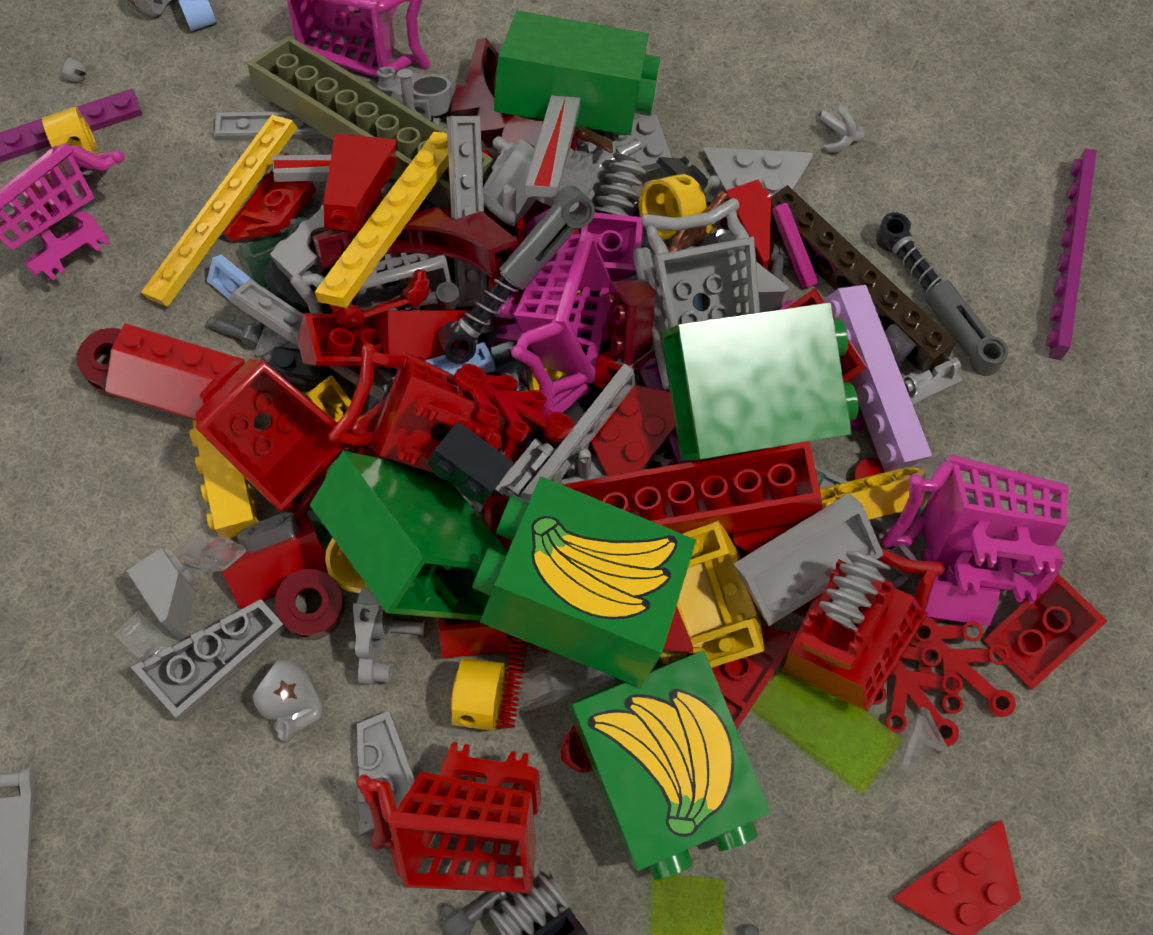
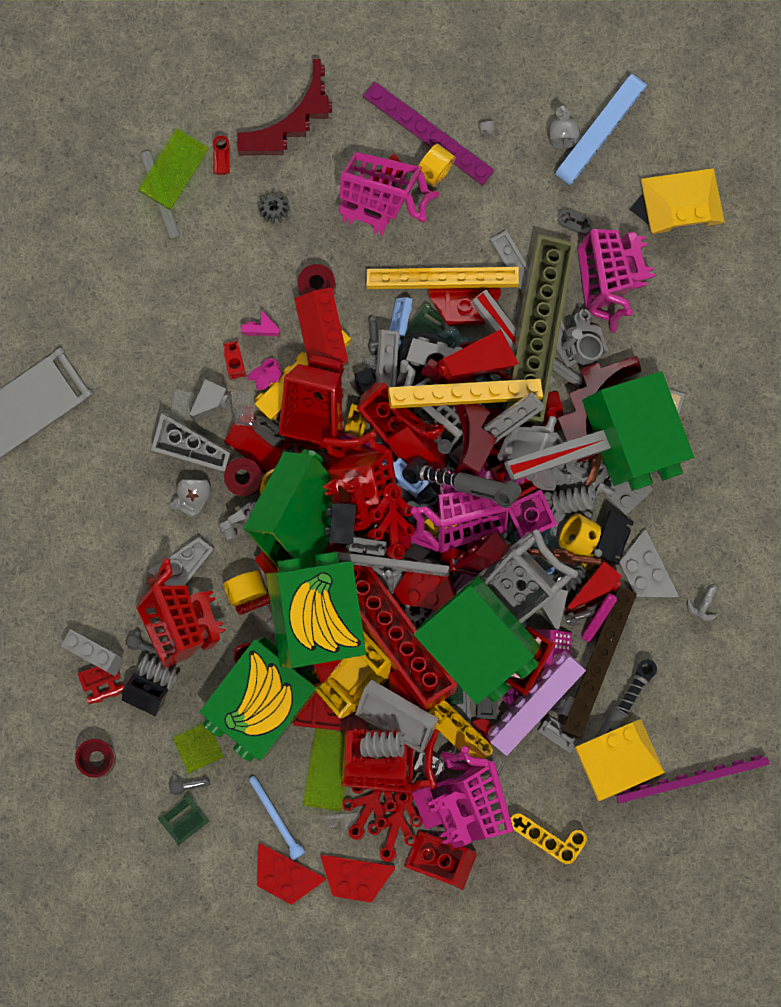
camera: 65 degrees right, 15 degrees up
(121, 462) = (266, 328): none -> dark pink slope
(135, 528) = (234, 360): none -> red leg
(185, 494) = (266, 374): none -> dark pink plate
(263, 37) = (573, 226): none -> dark grey beam
(842, 451) = (487, 709): none -> dark grey plate
(932, 843) = (294, 849): none -> light blue piece
(1007, 319) = (619, 760): none -> yellow slope
(1018, 773) = (355, 878): none -> red wing
(1095, 455) = (544, 835): none -> yellow beam

